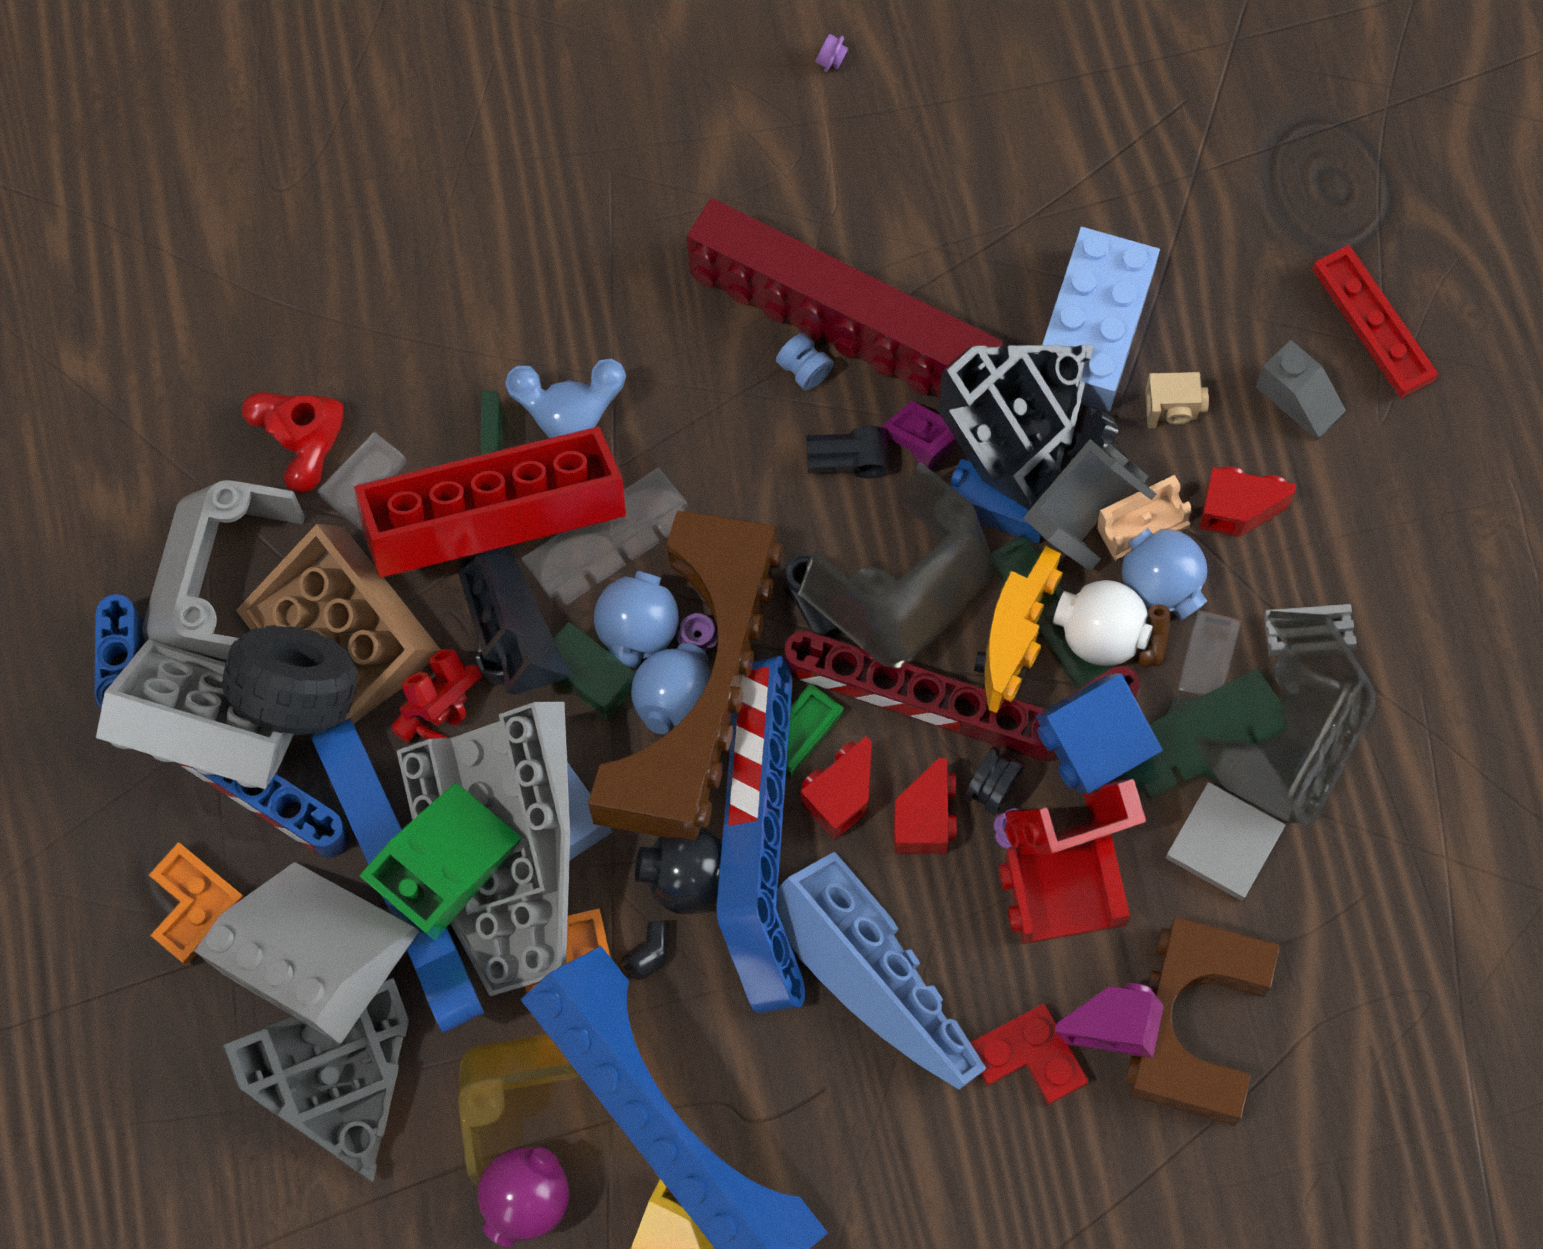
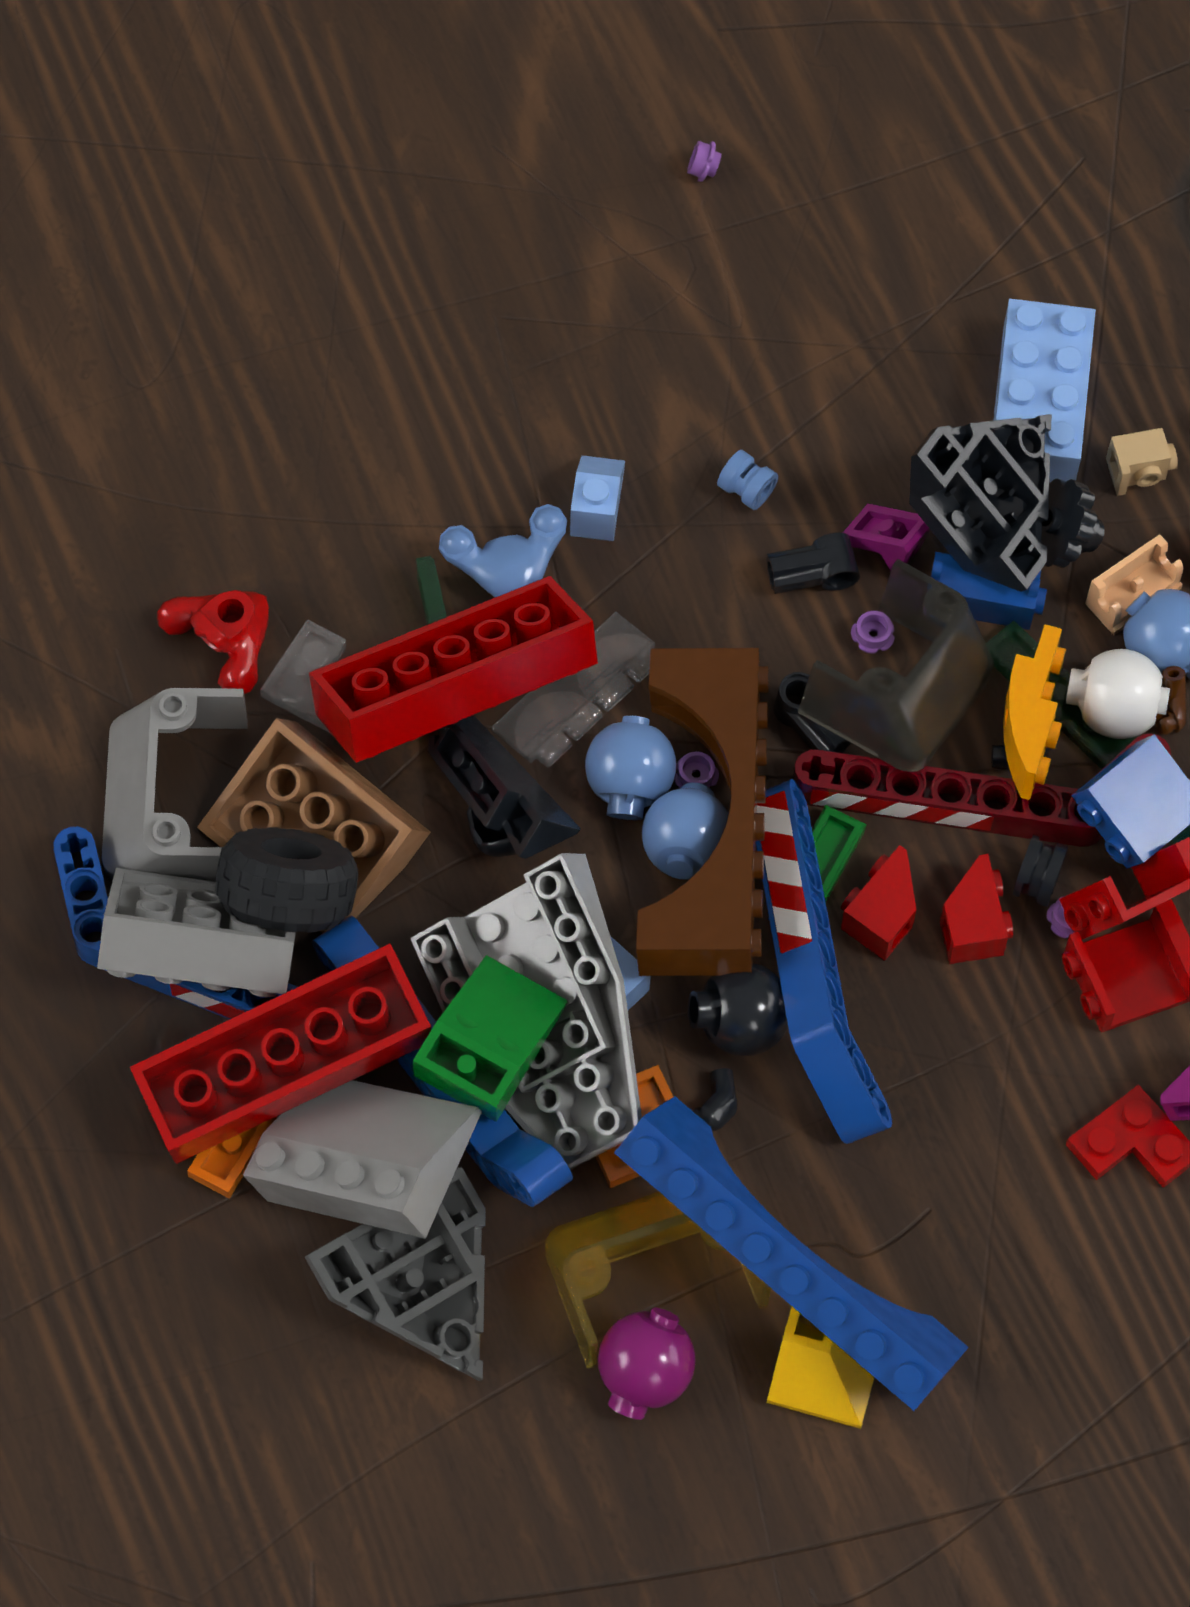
camera: 15 degrees left, 5 degrees down
(248, 844) = (282, 1053): none -> red brick
(407, 728) = (411, 915): red hand -> none
(442, 696) = (442, 874): red hips -> none
(594, 672) = (606, 831): clear green hinge -> none
(663, 355) = (596, 498): none -> light blue slope
(827, 298) = (764, 411): dark red brick -> none
(854, 953) = (929, 1063): medium blue wedge -> none
(894, 515) = (876, 622): none -> medium lavender plate
(1079, 493) = (1070, 564): dark grey panel -> none

